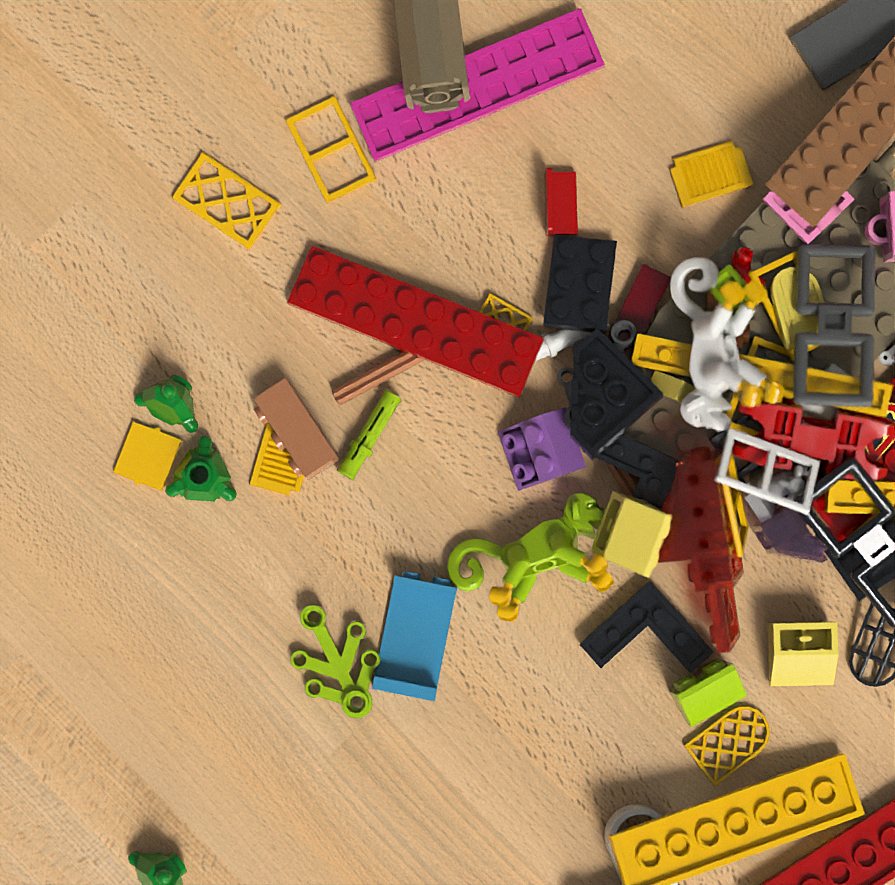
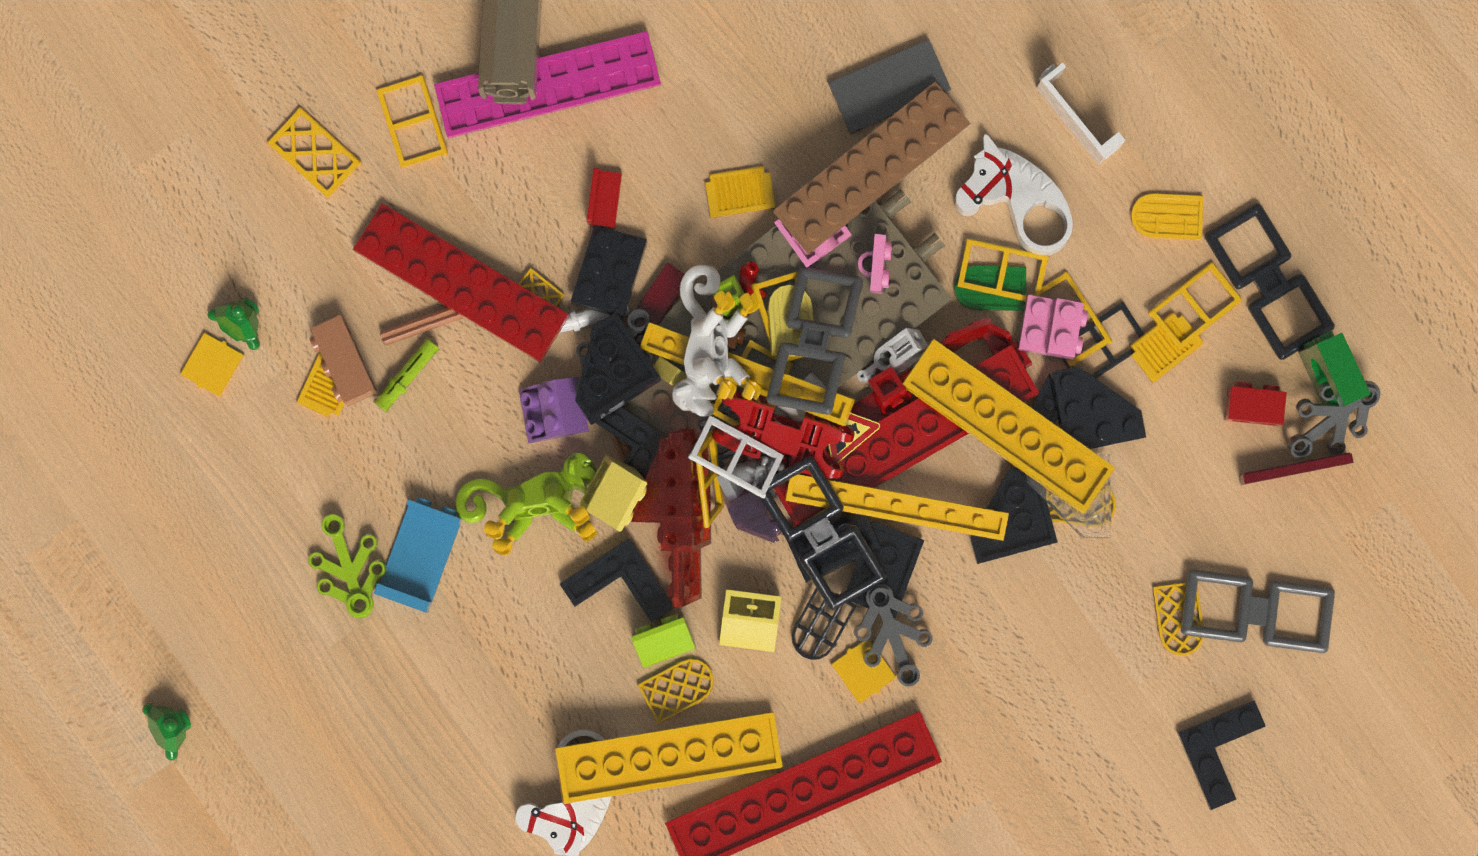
camera: 15 degrees right, 0 degrees up
(202, 475) = (256, 388): green rock -> none

